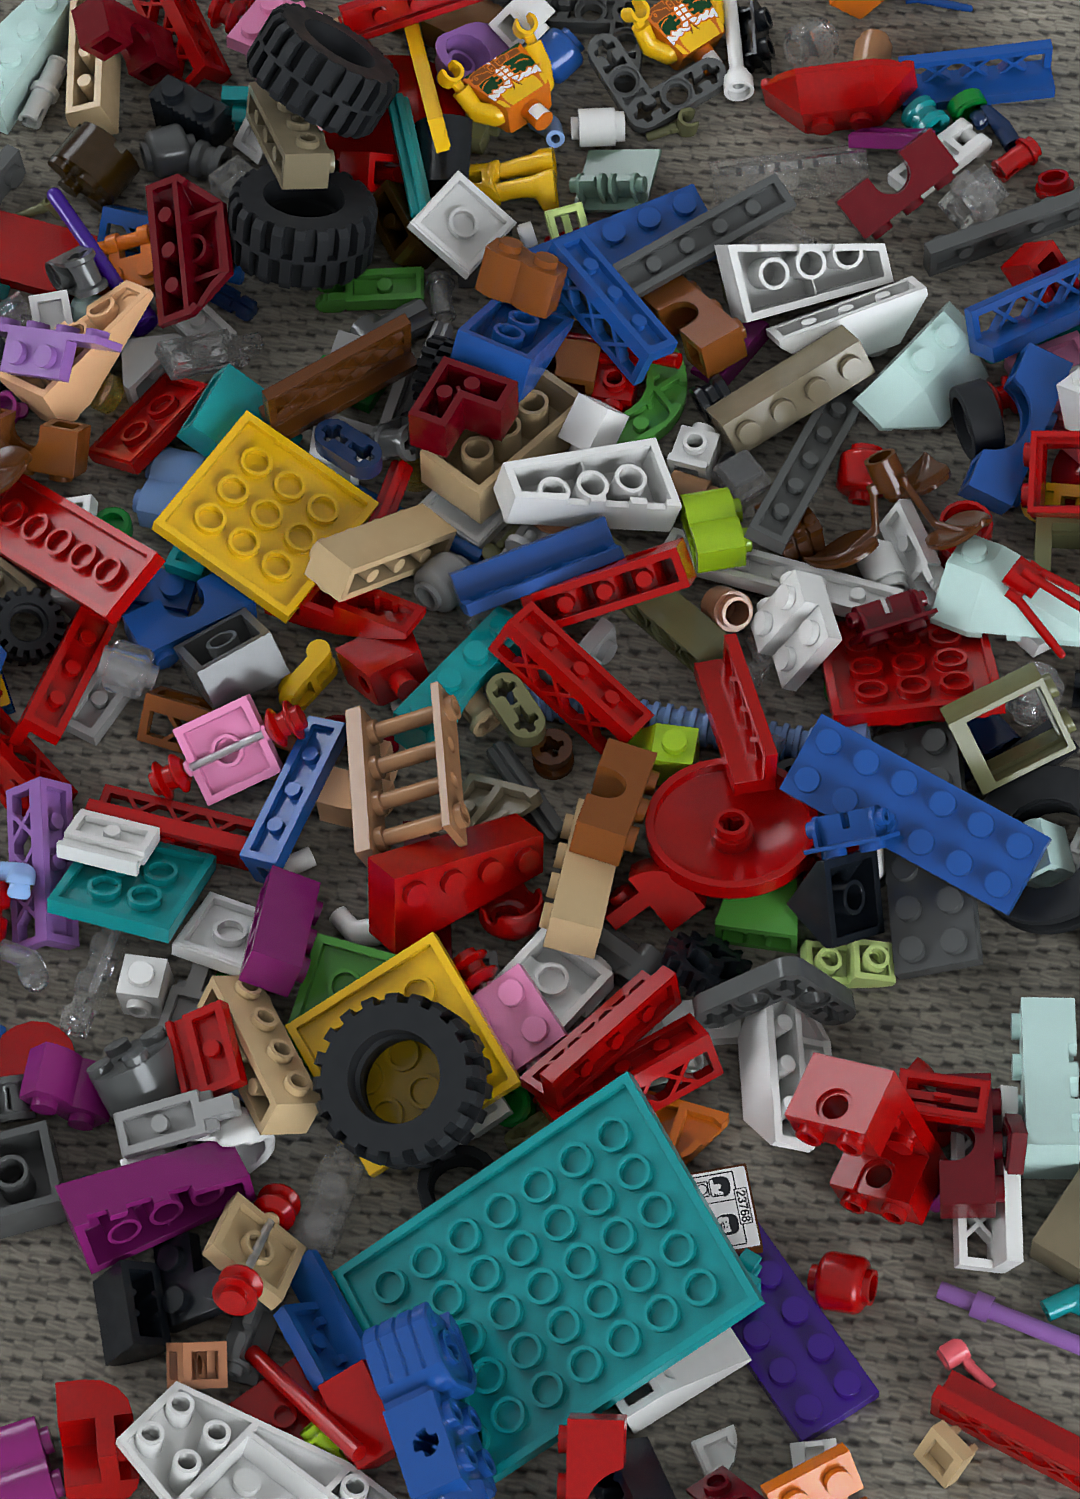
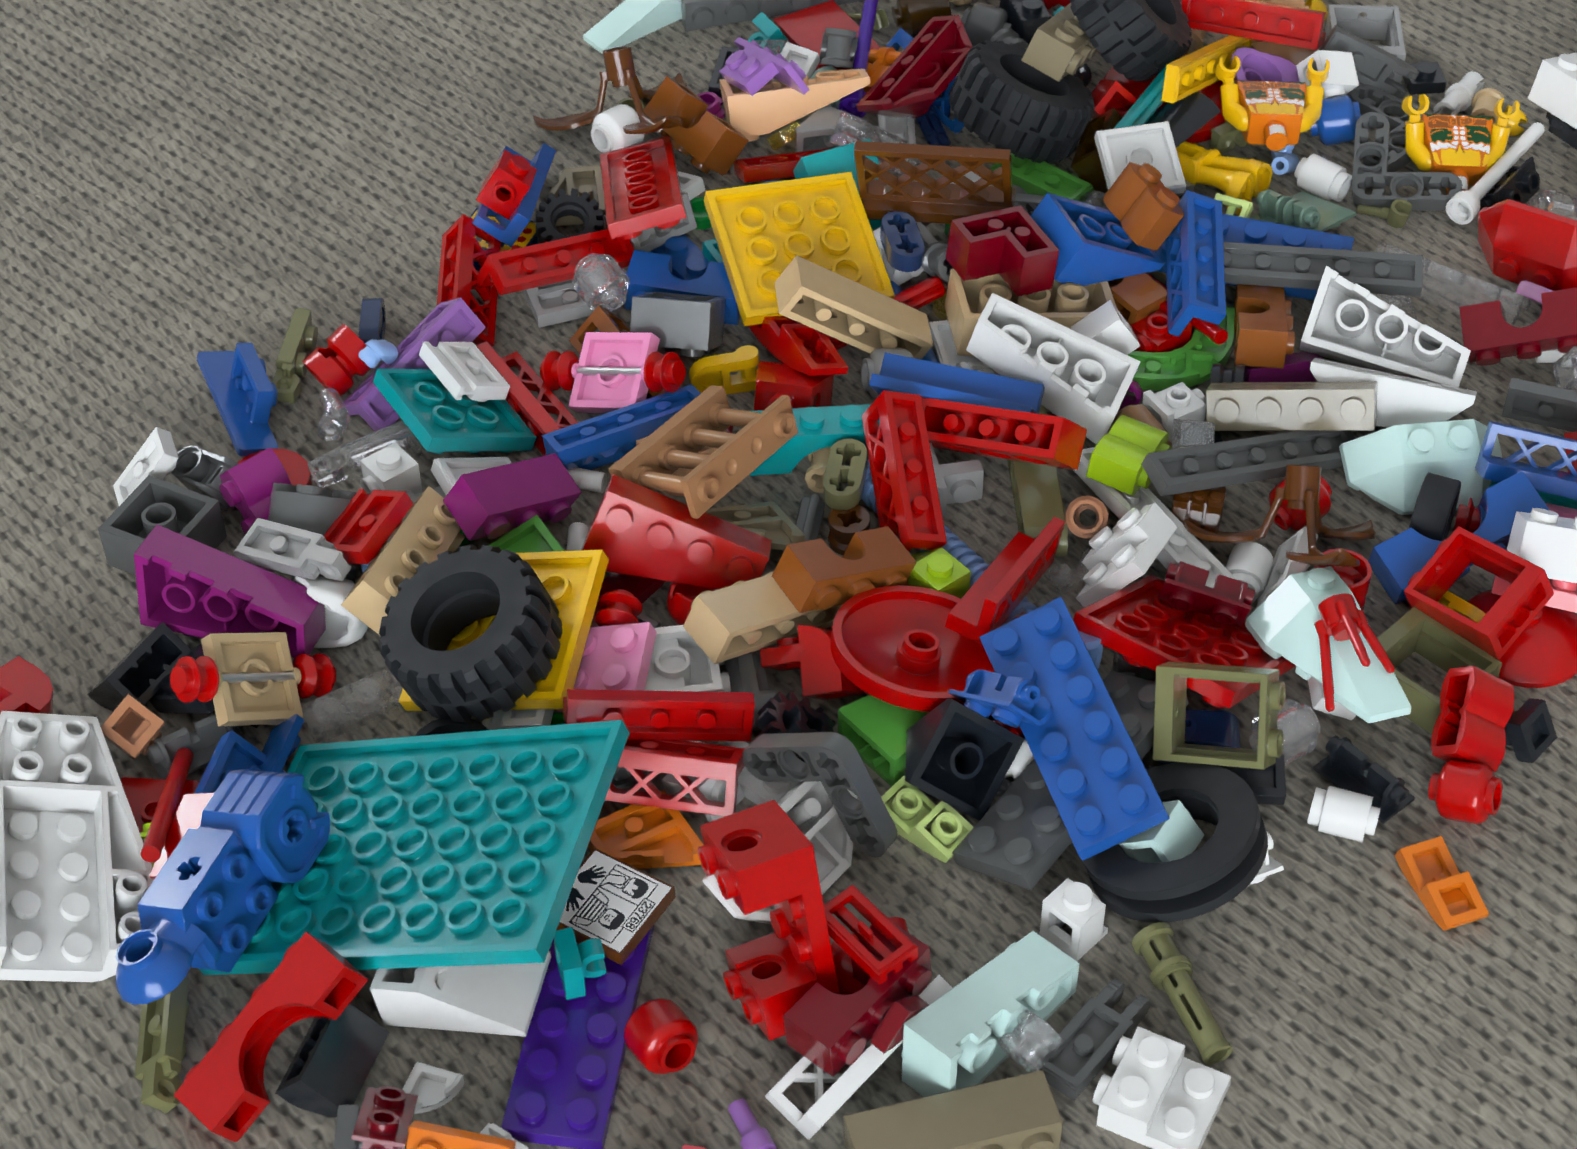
camera: 35 degrees right, 15 degrees down
(1031, 956) = (1078, 908): none -> white brick

